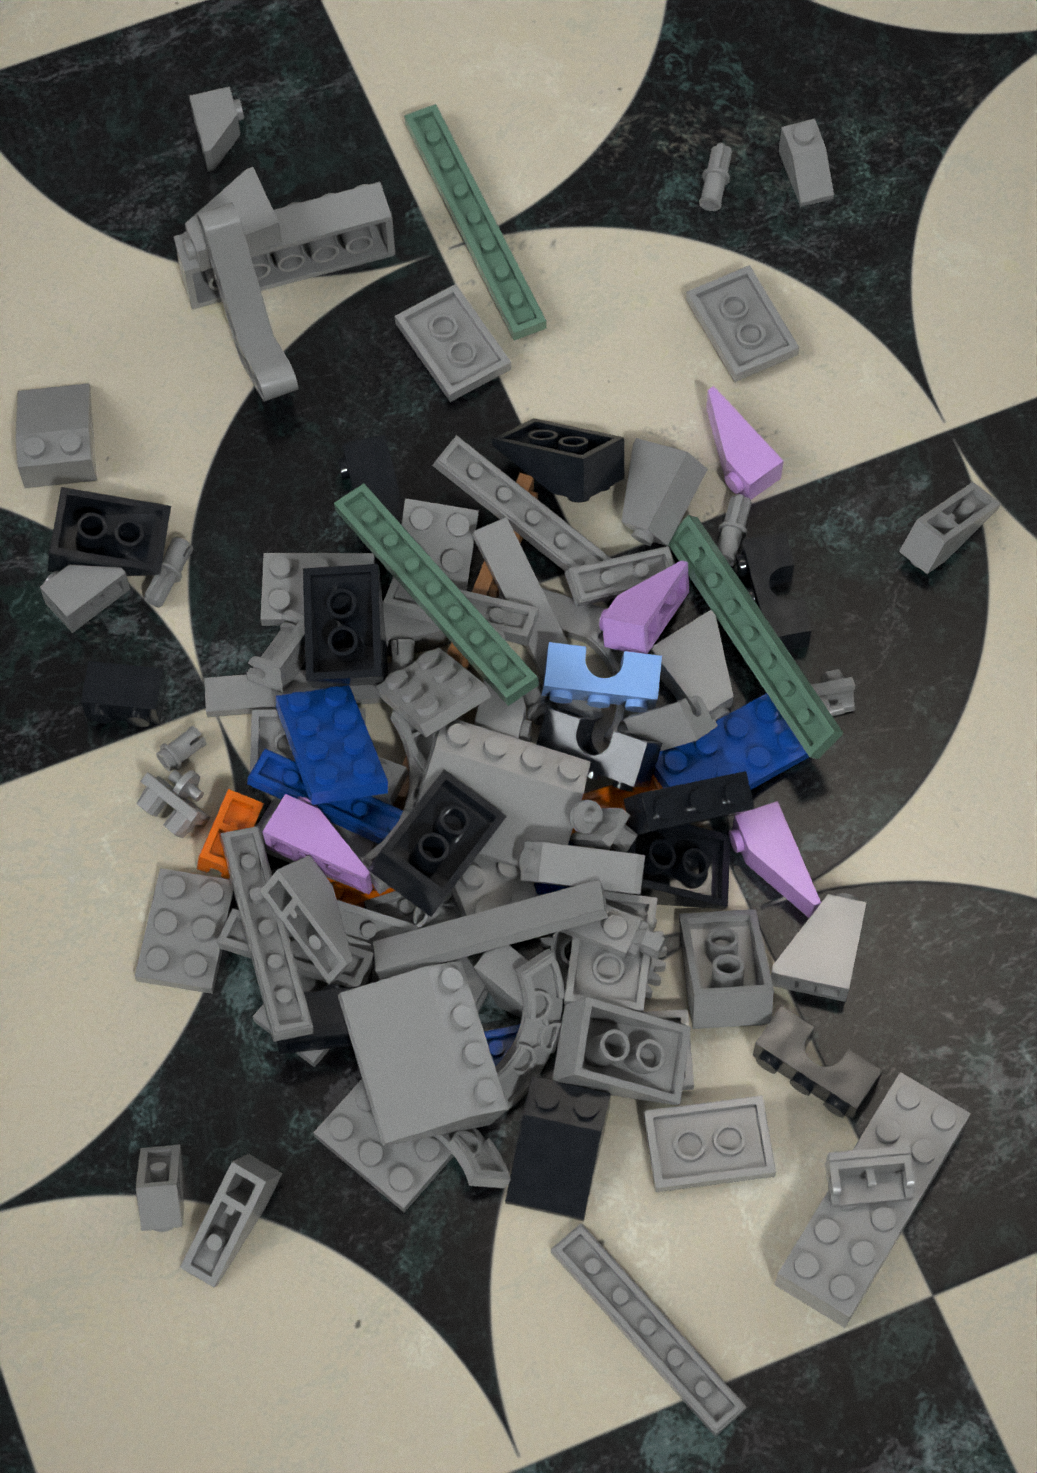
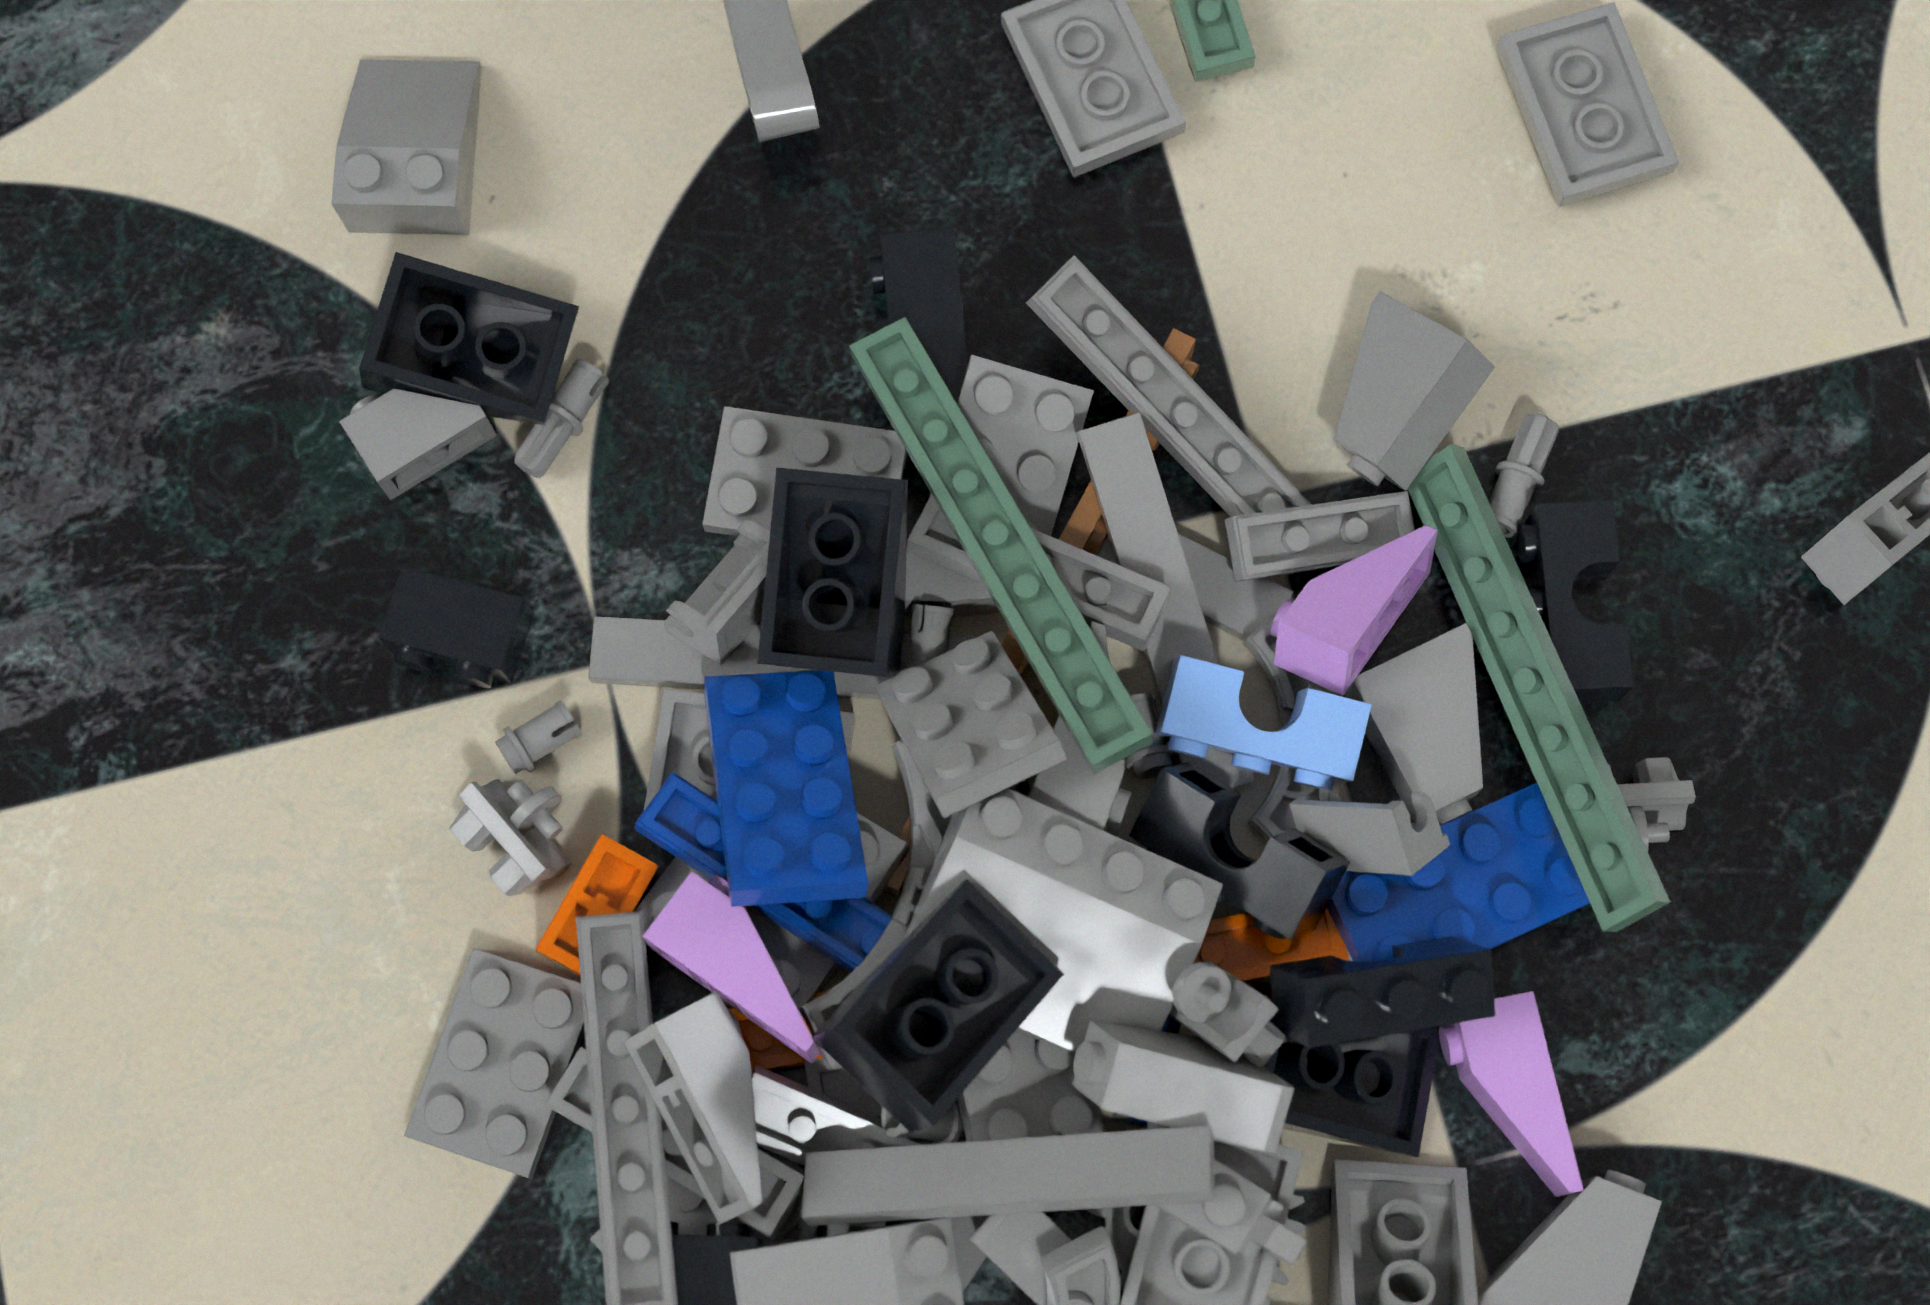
camera: 10 degrees right, 10 degrees up
(565, 457) = (1252, 309): black slope -> none
(744, 455) = (1556, 341): lavender slope -> none

